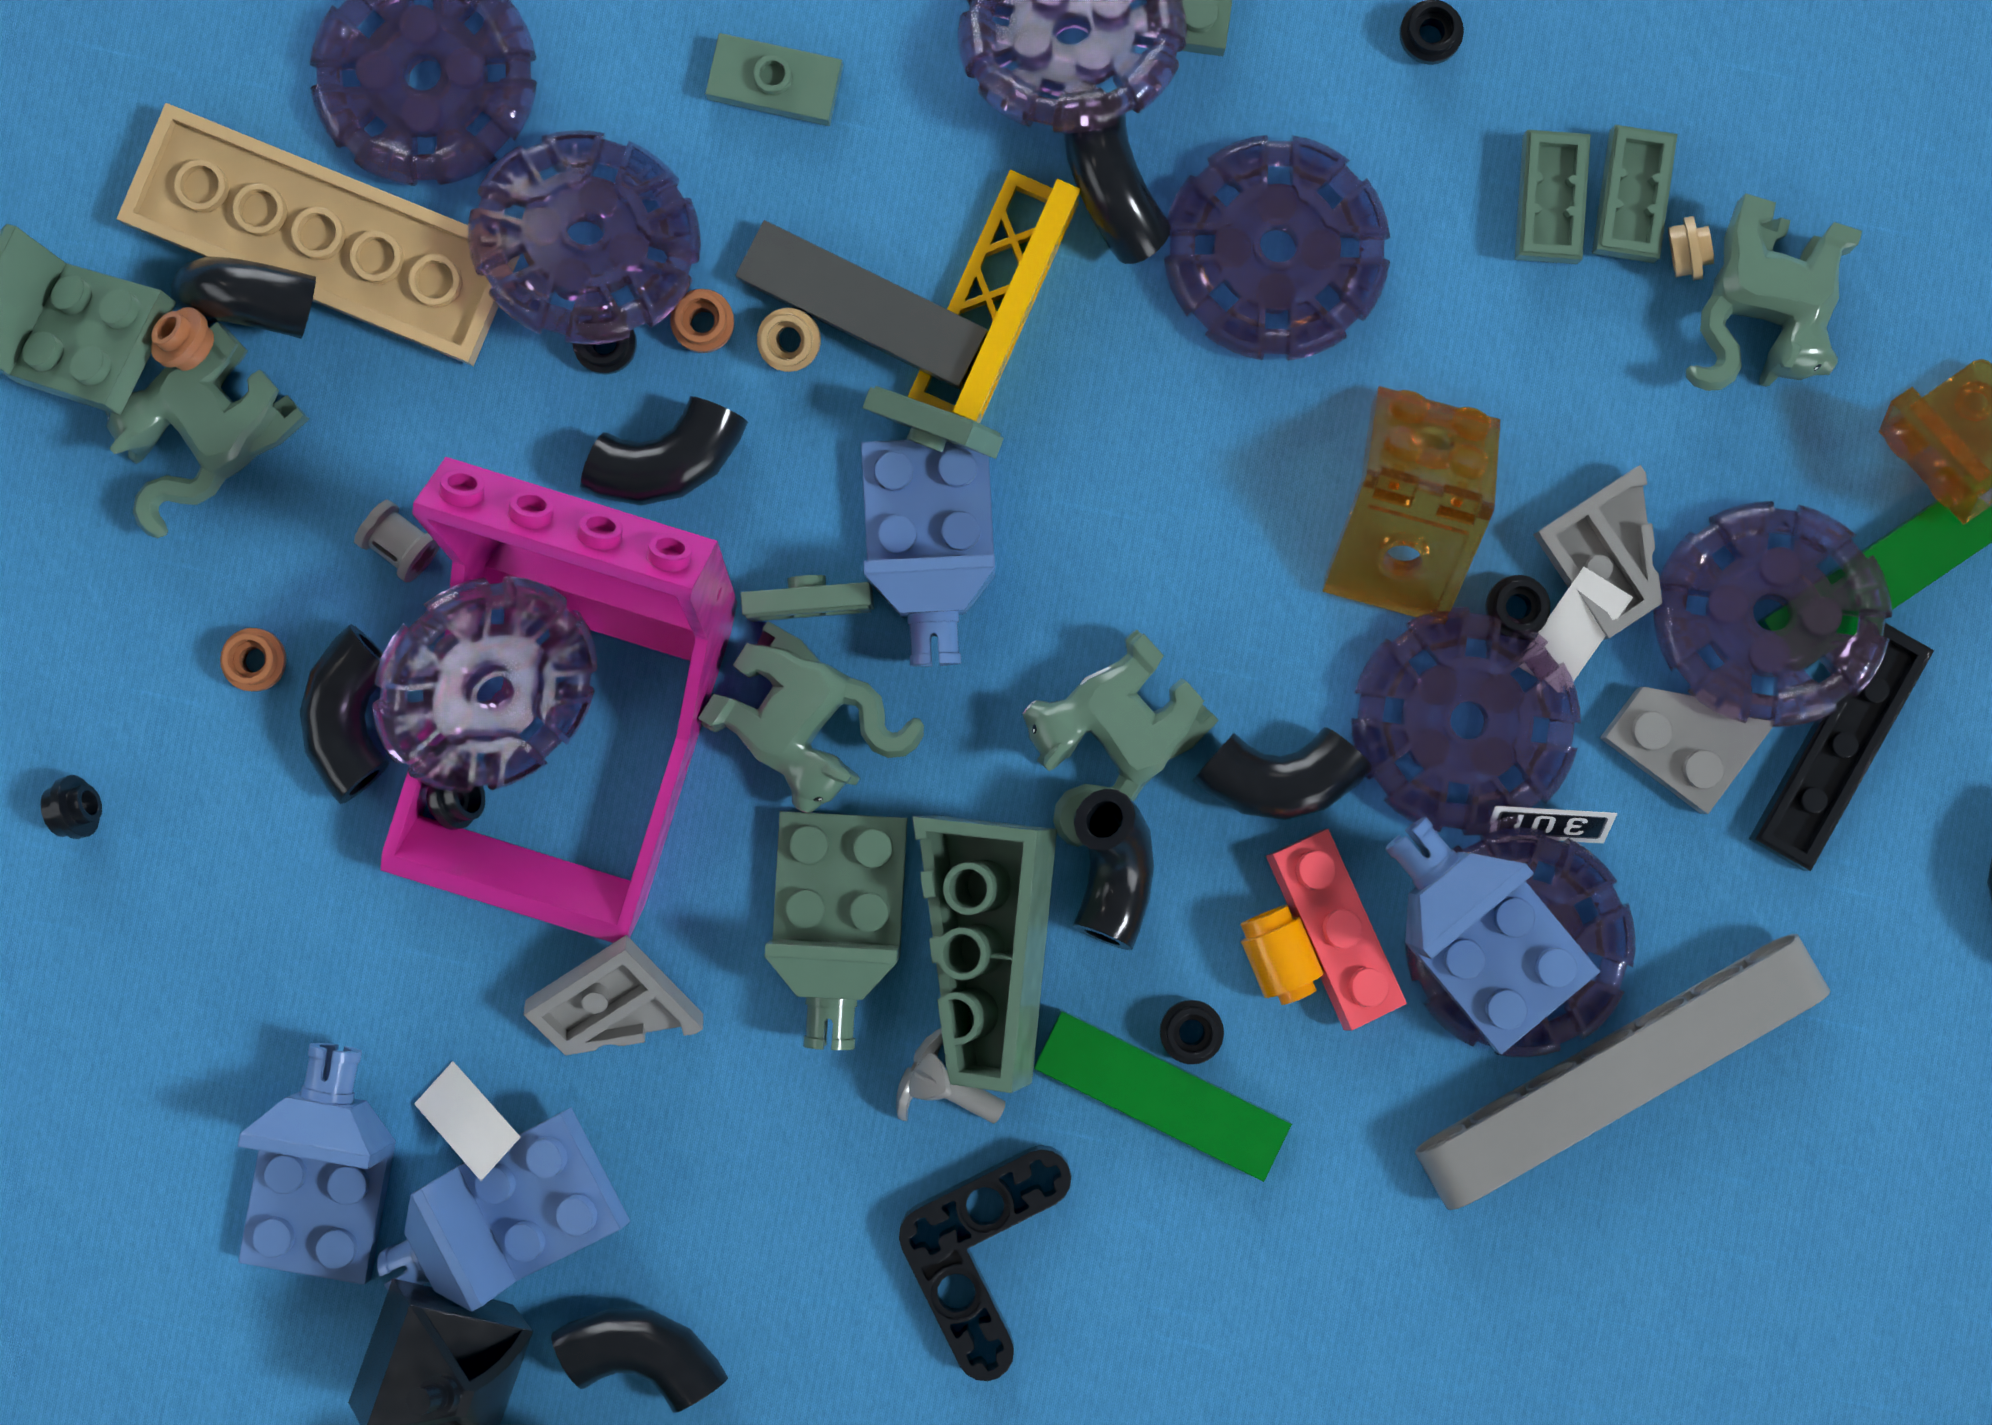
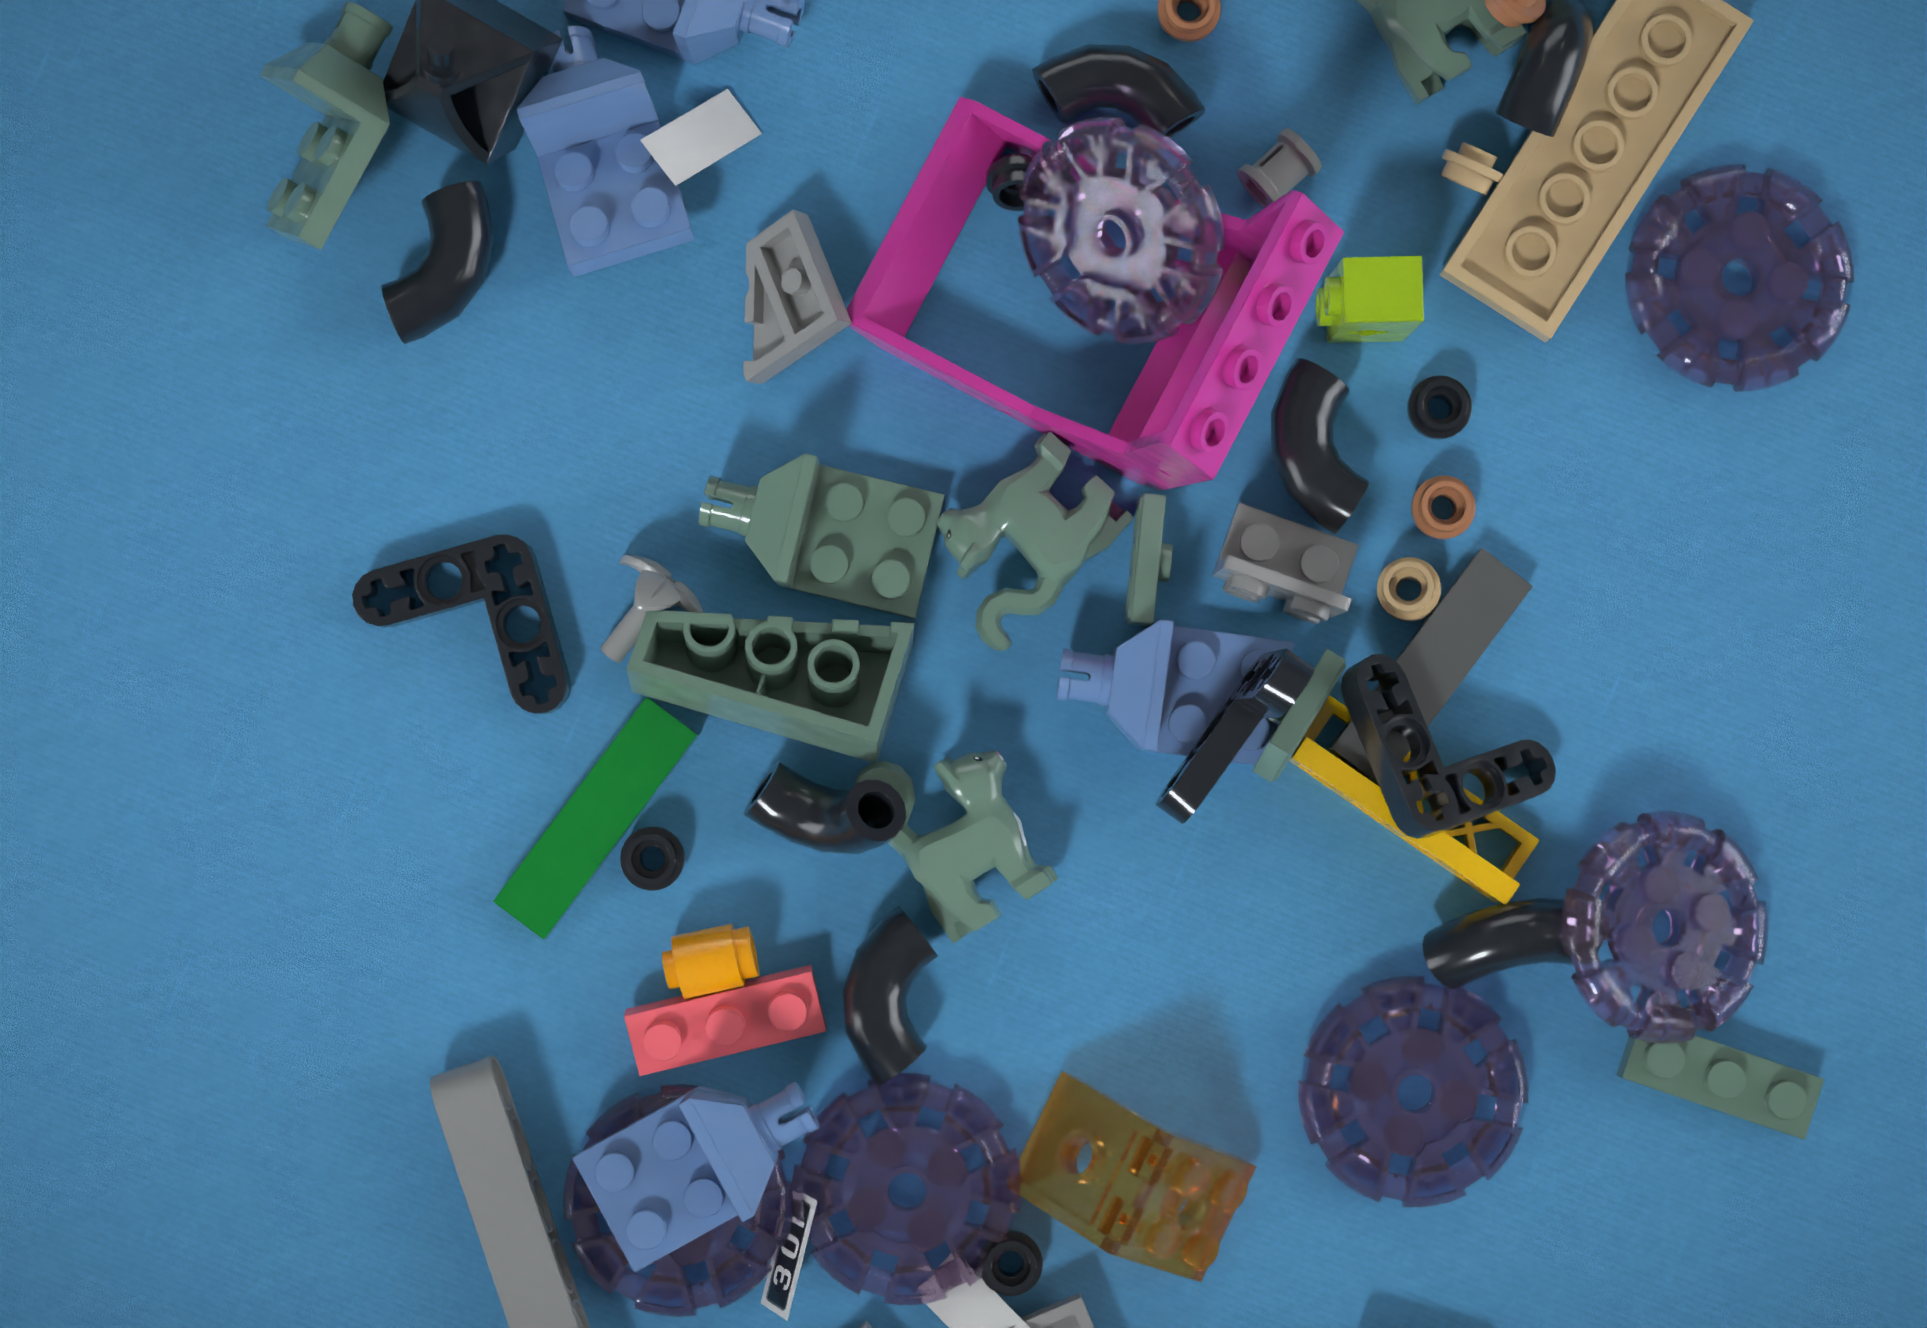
camera: 100 degrees right, 0 degrees up
(362, 353) = (1471, 168): none -> tan plate
(509, 424) = (1372, 299): none -> lime brick
(578, 270) = (1512, 400): clear purple plate -> none
(774, 79) = (1671, 622): sand green plate -> none
(784, 464) = (1287, 562): none -> light grey bracket
(915, 458) = (1263, 693): none -> black beam
(974, 276) = (1437, 783): none -> black beam
(1442, 17) = (1618, 1300): black plate -> none

